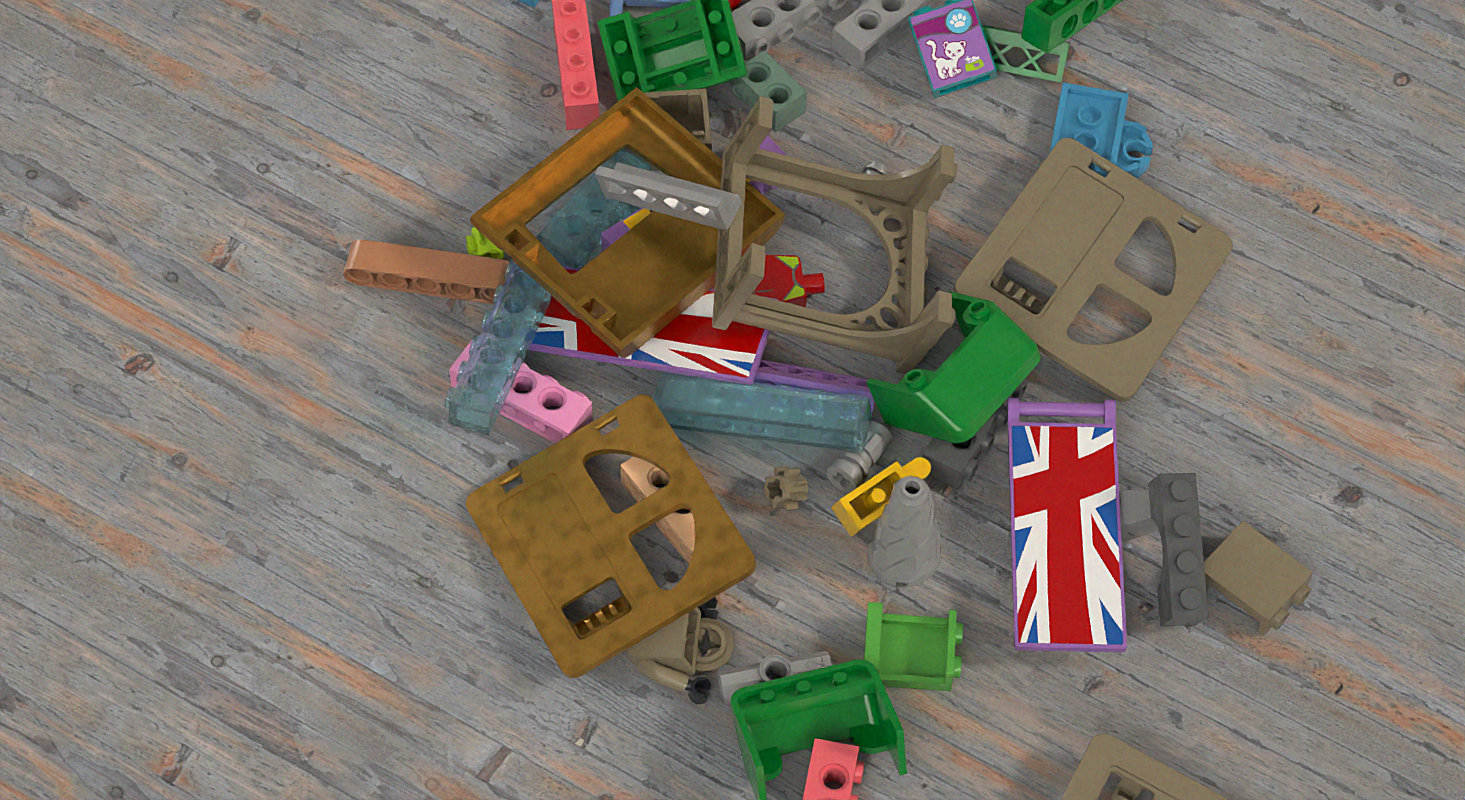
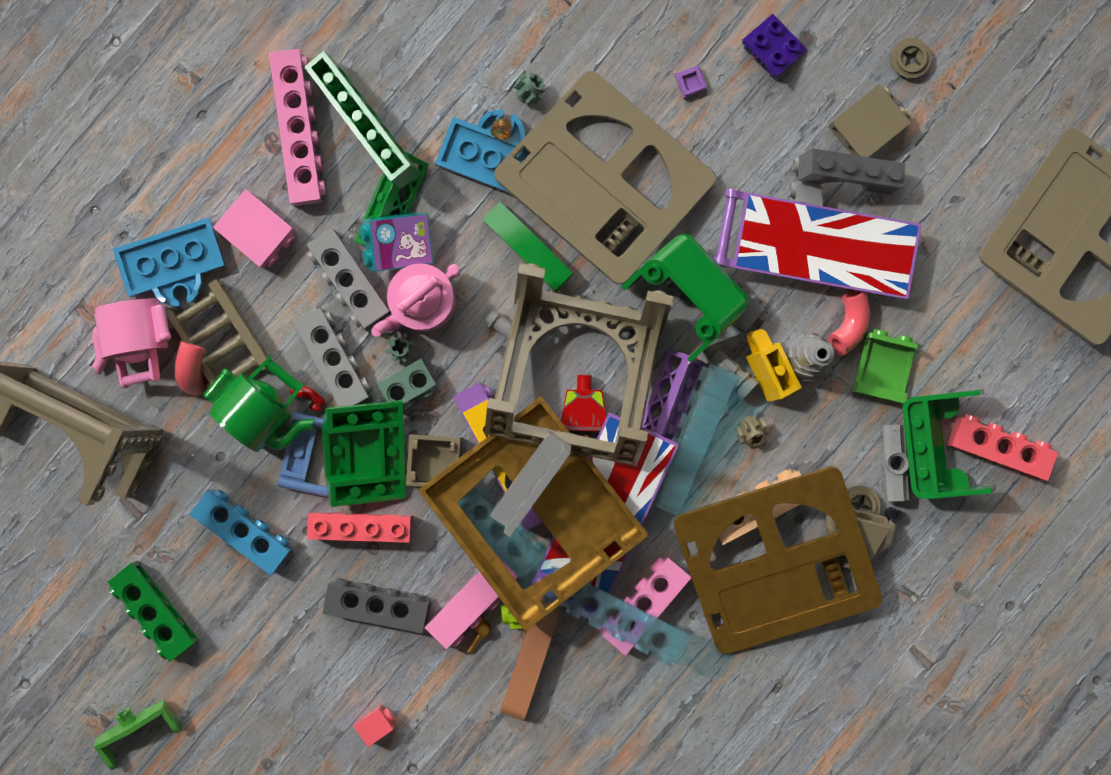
camera: 85 degrees left, 30 degrees up
(318, 111) = (375, 724): none -> coral brick
(459, 217) = (482, 629): none -> pearl gold hand
(474, 95) = (336, 605): none -> dark grey brick
(476, 181) = (464, 611): none -> bright pink brick
(817, 77) = (407, 350): none -> sand green gear
(883, 80) = (411, 286): none -> bright pink piece
(969, 599) = (854, 324): none -> coral cylinder
(978, 197) = (527, 245): none -> green slope
(1126, 140) = (496, 130): none -> clear orange hinge
(1188, 170) = (529, 88): none -> sand green gear
(1250, 360) = (691, 82): none -> medium lavender tile
(1328, 447) = (773, 46): none -> dark purple hinge
(1354, 610) = (922, 58): none -> dark tan gear

